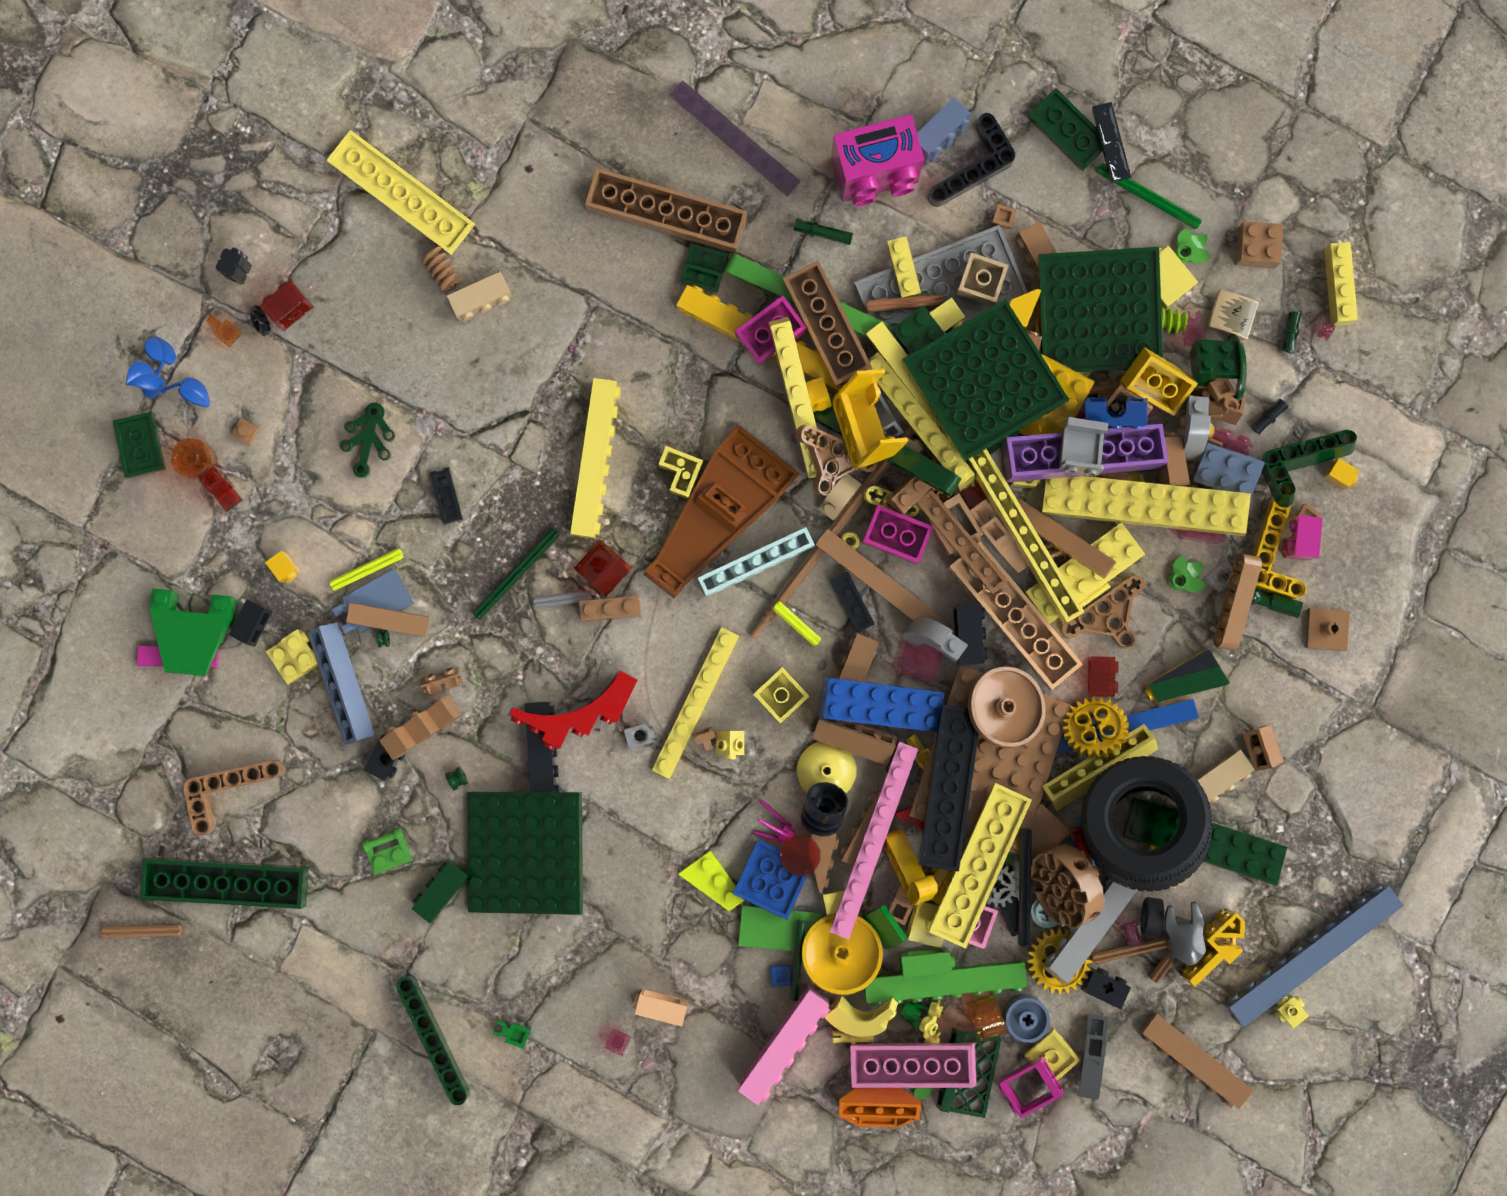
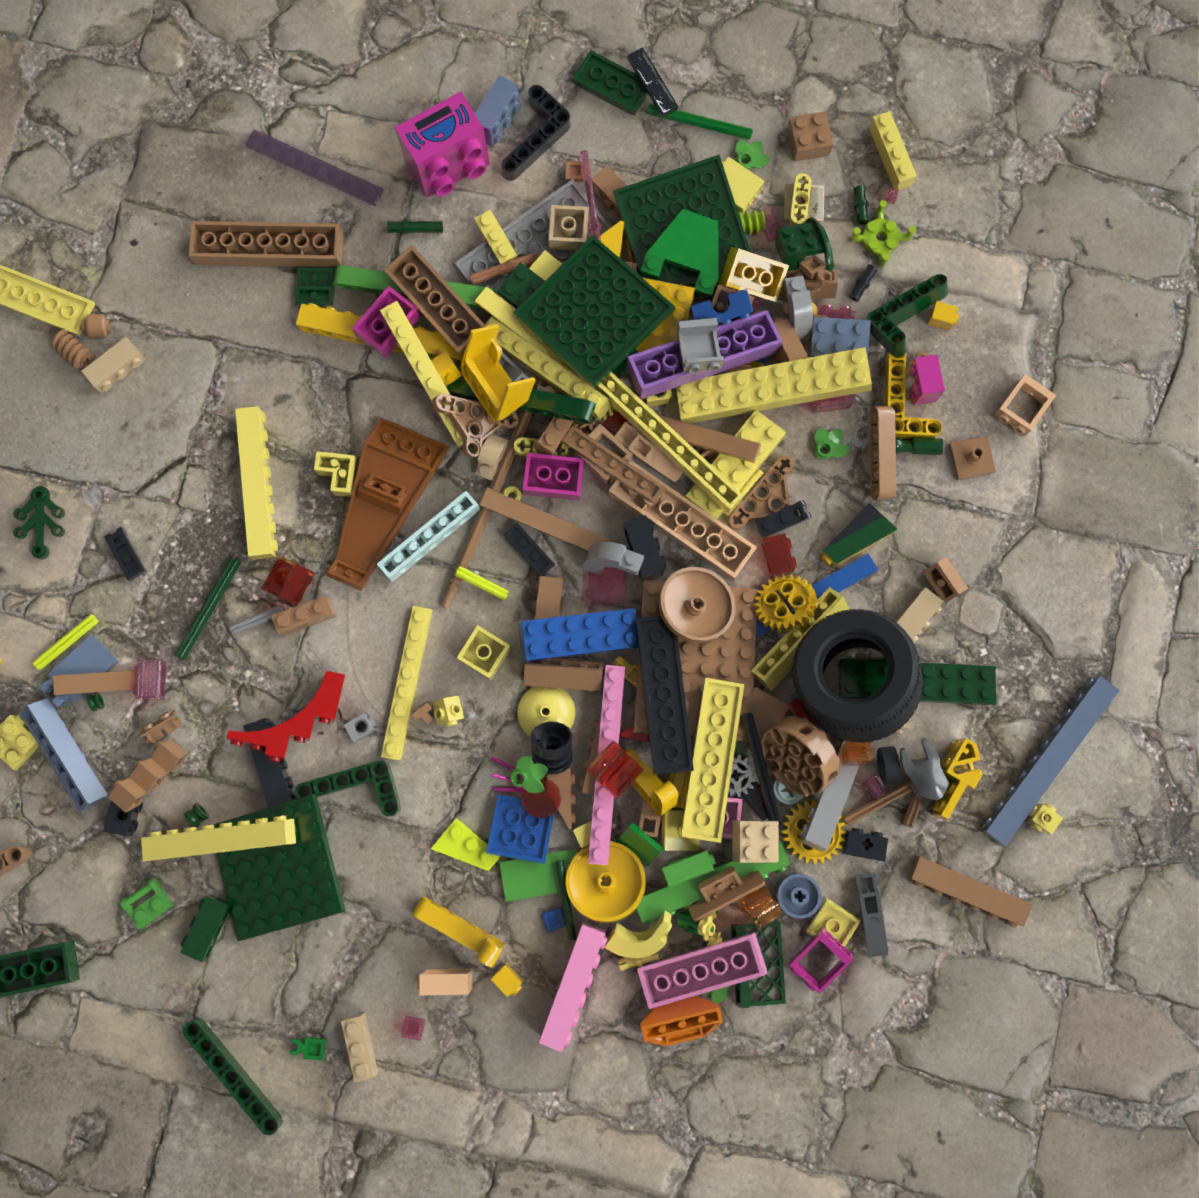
camera: 15 degrees left, 5 degrees down
(442, 631) = (150, 680): none -> clear pink brick
(471, 250) = (96, 326): none -> medium nougat head
(475, 810) = (219, 839): none -> light yellow brick
(561, 1046) = (359, 1047): none -> tan brick
(619, 788) = (353, 781): none -> dark green beam
(710, 985) = (460, 930): none -> yellow beam
(720, 1022) = (507, 980): none -> yellow brick
(797, 828) = (531, 773): none -> bright green plate
(881, 848) = (614, 769): none -> clear red slope
(955, 994) = (723, 890): none -> medium nougat bracket
(999, 956) = (755, 841): none -> tan brick
(1010, 284) = (594, 223): none -> clear pink bar
(1103, 333) = (689, 244): none -> green wedge
(1116, 641) = (782, 519): none -> black plate
(1124, 898) = (857, 753): none -> clear orange brick
(1221, 315) = (805, 193): none -> light yellow beam
(1311, 364) = (888, 229): none -> lime plate
(1413, 579) = (1036, 391): none -> light nougat window

